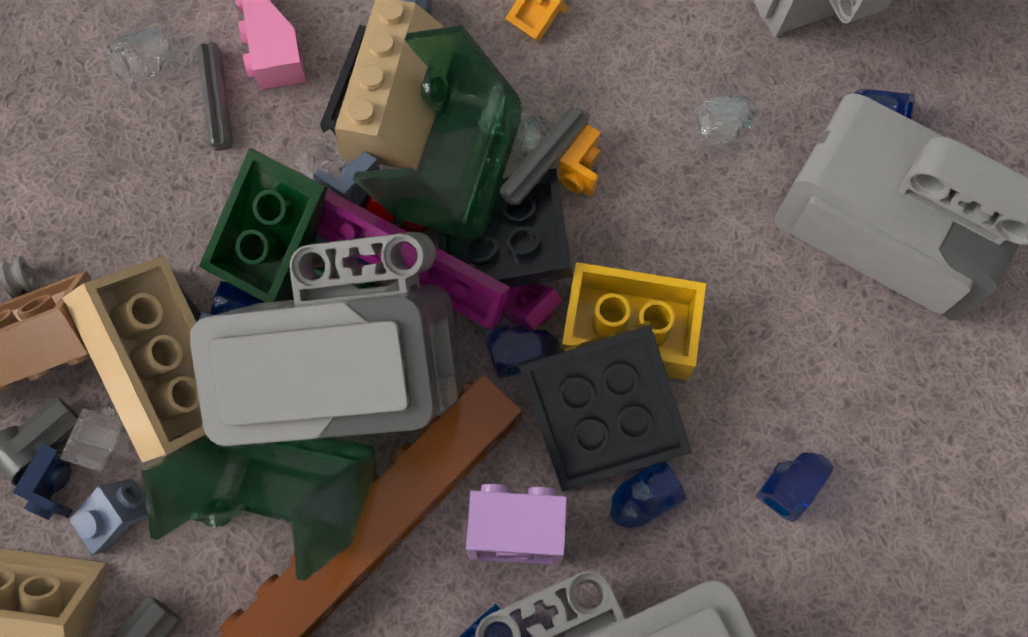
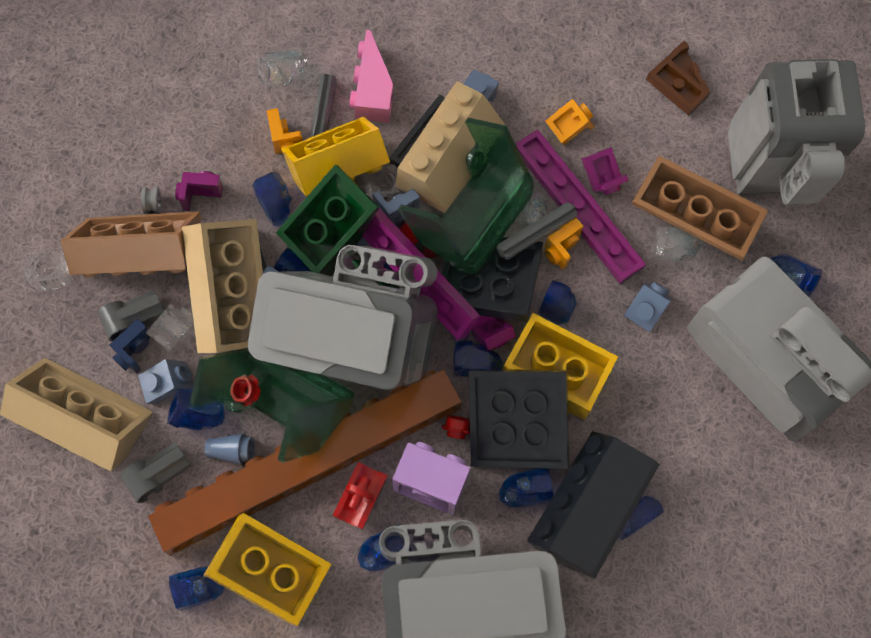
camera: 15 degrees right, 0 degrees up
(74, 236) = (200, 184): none -> magenta bracket
(168, 552) = (194, 418): none -> clear blue rock
(173, 144) = (280, 133): none -> light orange bracket
(182, 221) = (273, 197): none -> clear blue rock
(223, 491) = (240, 386): none -> red plate
(230, 578) = (232, 448): none -> sand blue cone
(269, 121) = (352, 146): none -> yellow brick
(428, 584) = (360, 496): none -> red hips
(526, 445) = (456, 426): none -> red plate
(600, 58) = (603, 171): none -> magenta bracket
(602, 240) = (558, 303): none -> clear blue rock
(620, 132) = (565, 188): none -> magenta plate
(716, 207) = (648, 305): none -> sand blue bracket
(739, 62) = (700, 207): none -> medium nougat slope
(742, 489) = (593, 503): none -> black slope

